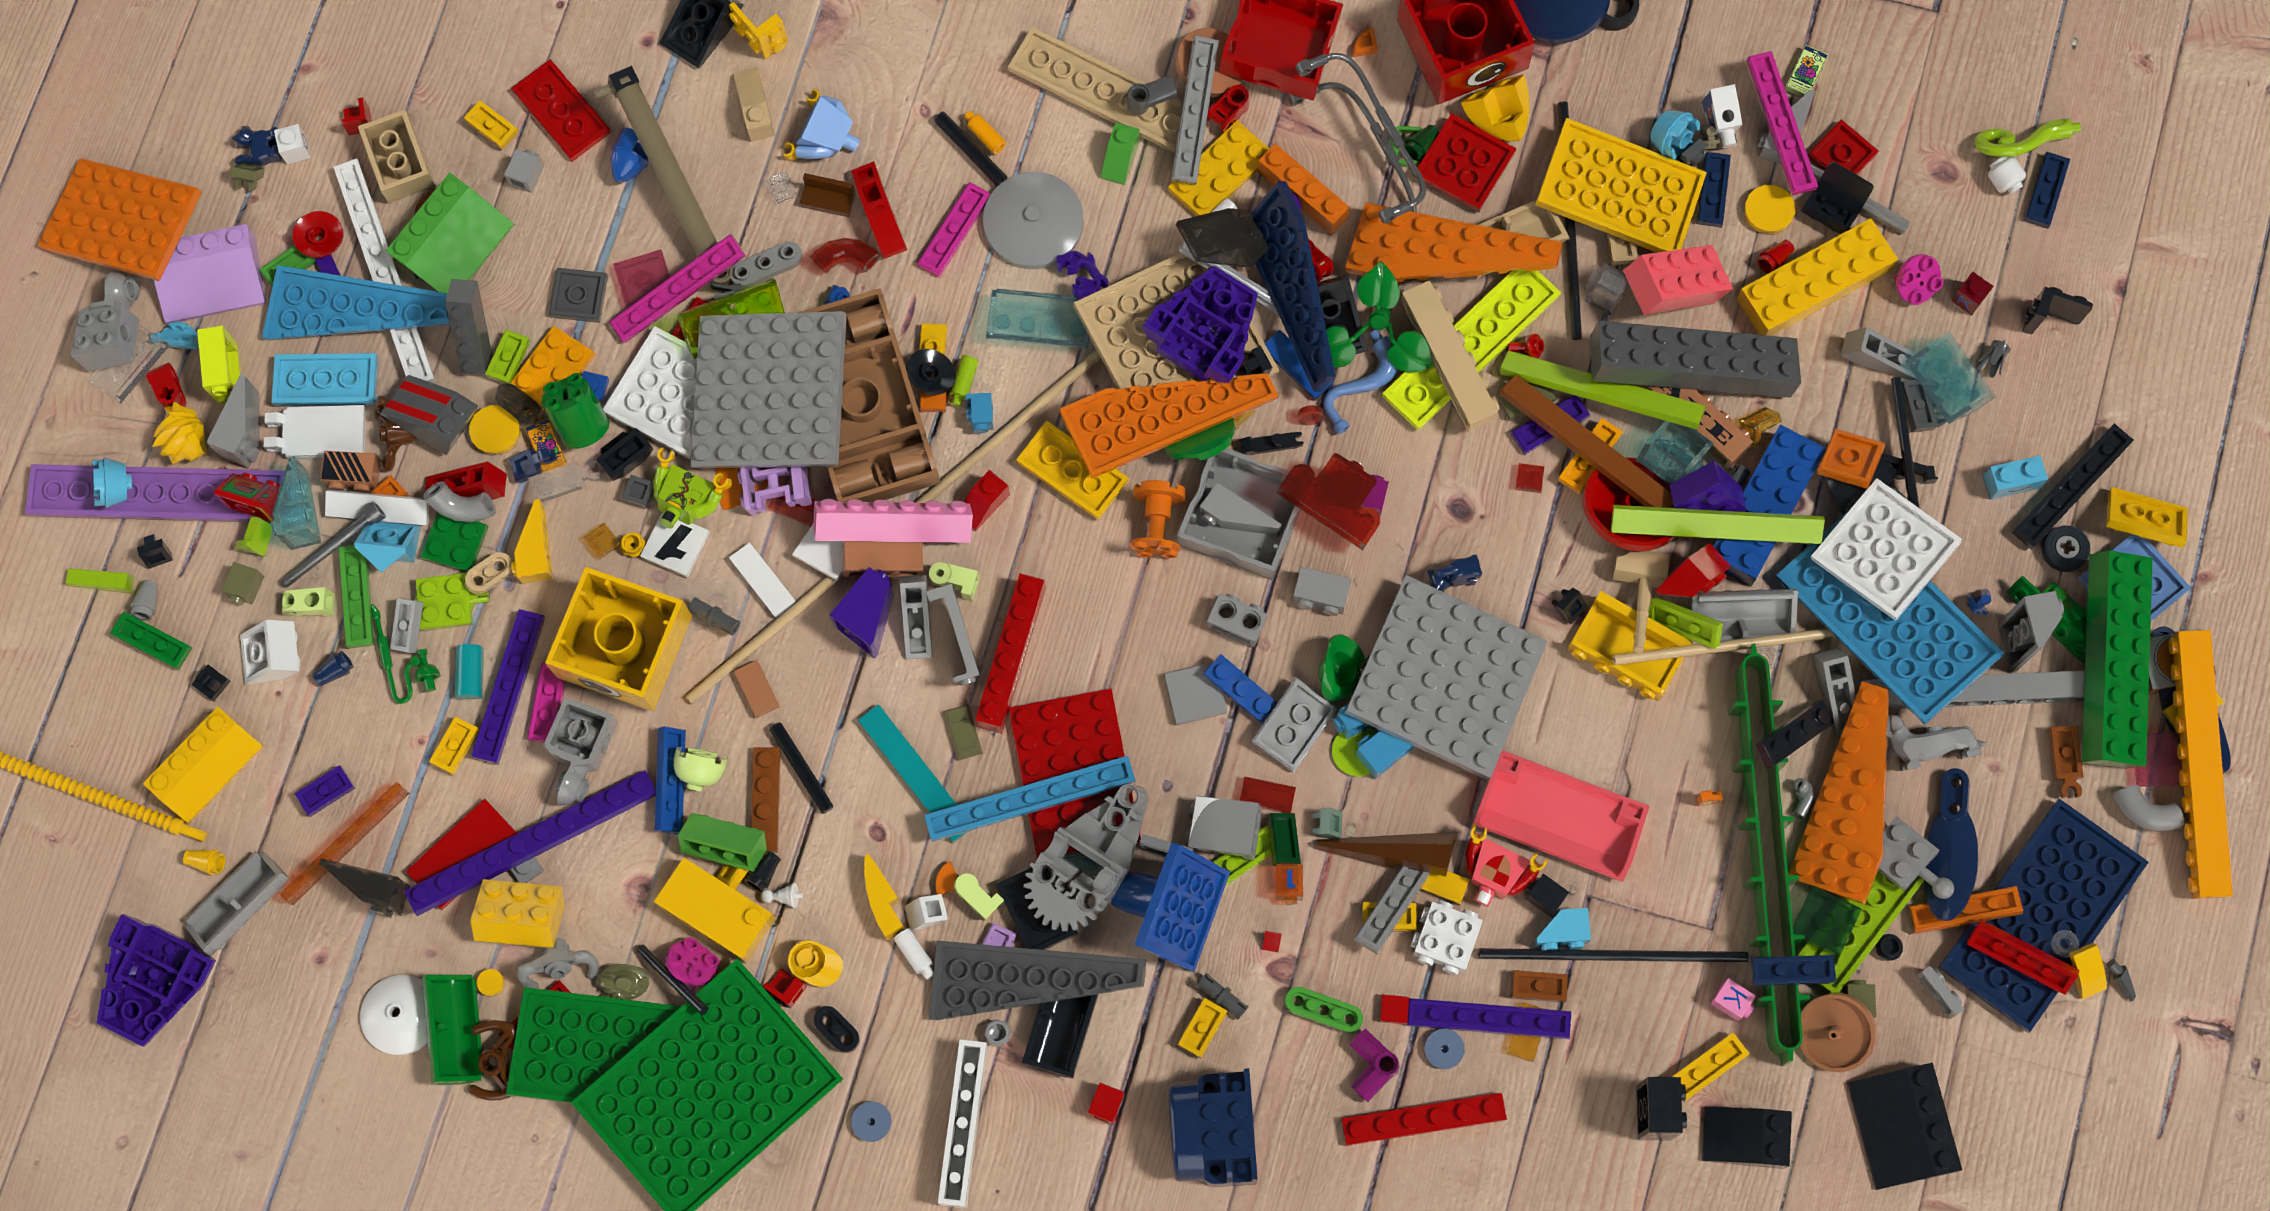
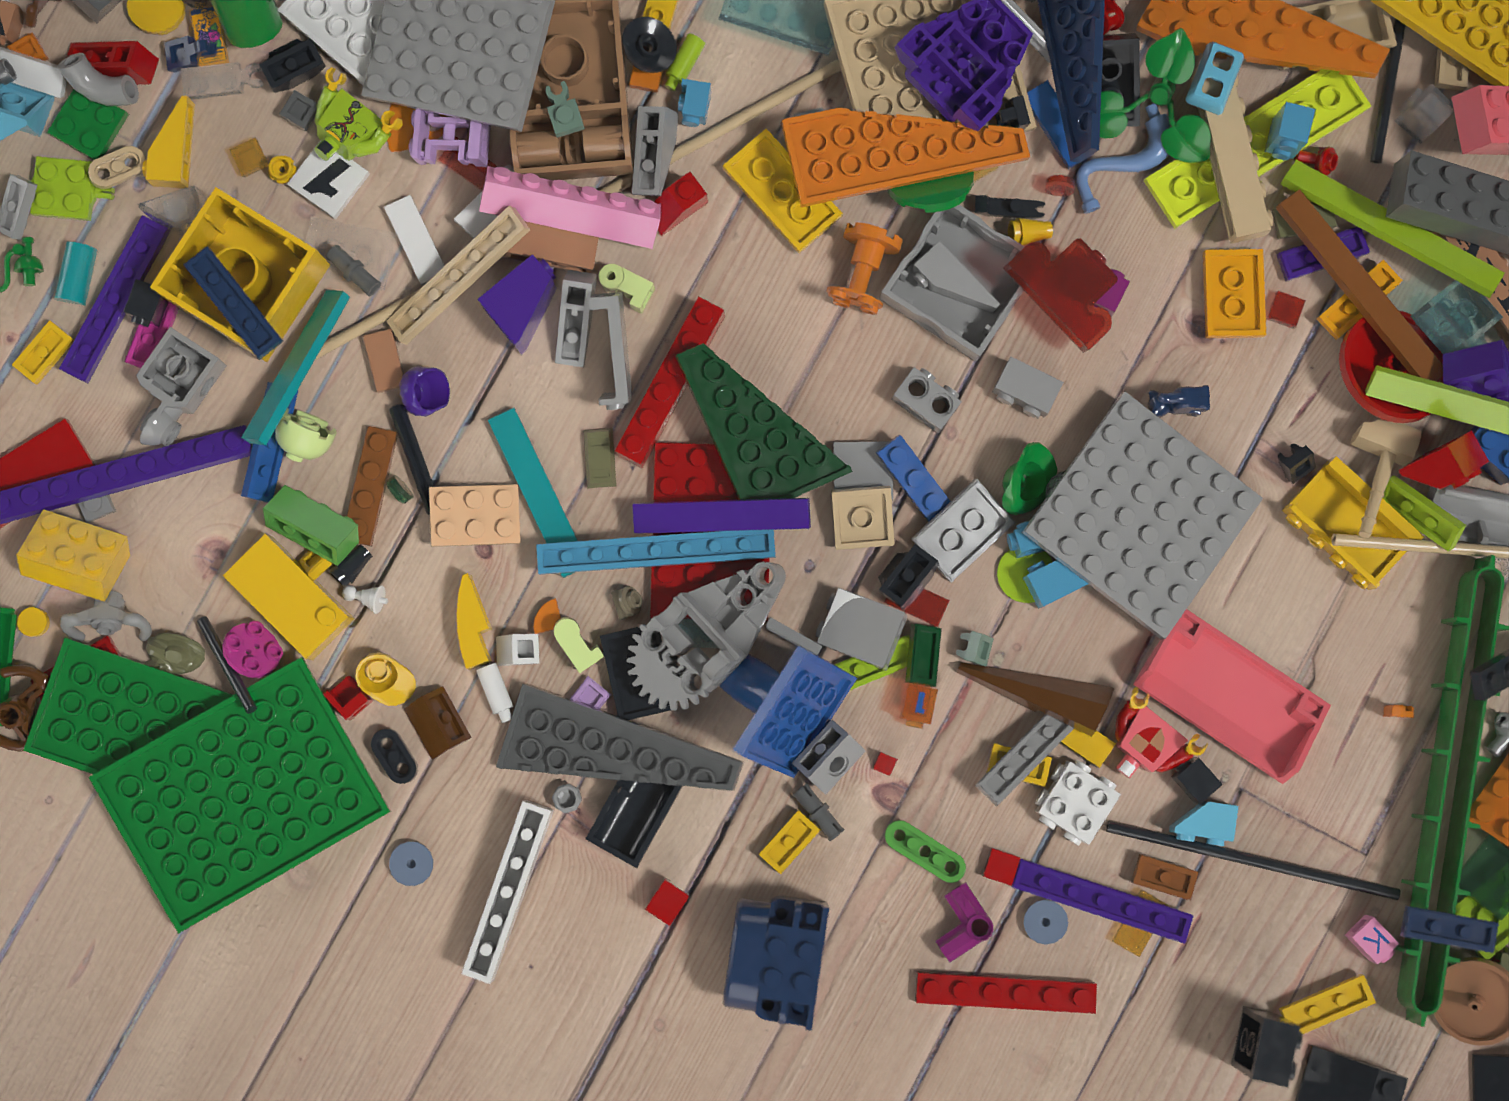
camera: 10 degrees right, 10 degrees up
(538, 683) = (145, 305): none -> black brick
(550, 597) = (175, 209): none -> clear slope
(621, 660) = (233, 302): none -> dark blue tile
(681, 709) = (296, 367): none -> teal tile
(791, 795) = (399, 489): none -> clear green tile
(797, 705) = (424, 390): none -> dark purple hair
(806, 600) = (458, 275): none -> tan plate
(863, 804) = (474, 515): none -> light nougat plate
(868, 992) = (437, 722): none -> reddish brown panel
(871, 443) = (564, 114): none -> sand green plate
(953, 458) = (653, 149): none -> light grey slope
(1013, 850) = (627, 602): none -> dark tan plate
(1080, 754) = (722, 515): none -> dark purple tile
(1101, 689) = (756, 440): none -> dark green wing
(1204, 732) = (862, 517): none -> tan plate
(1220, 944) = (829, 757): none -> light grey brick
(1254, 773) = (907, 576): none -> black slope
(1290, 457) = (1029, 231): none -> yellow cone
(1411, 291) = (1208, 70): none -> medium azure piece
(1481, 473) = (1234, 293): none -> light orange plate
(1494, 327) = (1289, 131): none -> dark azure brick

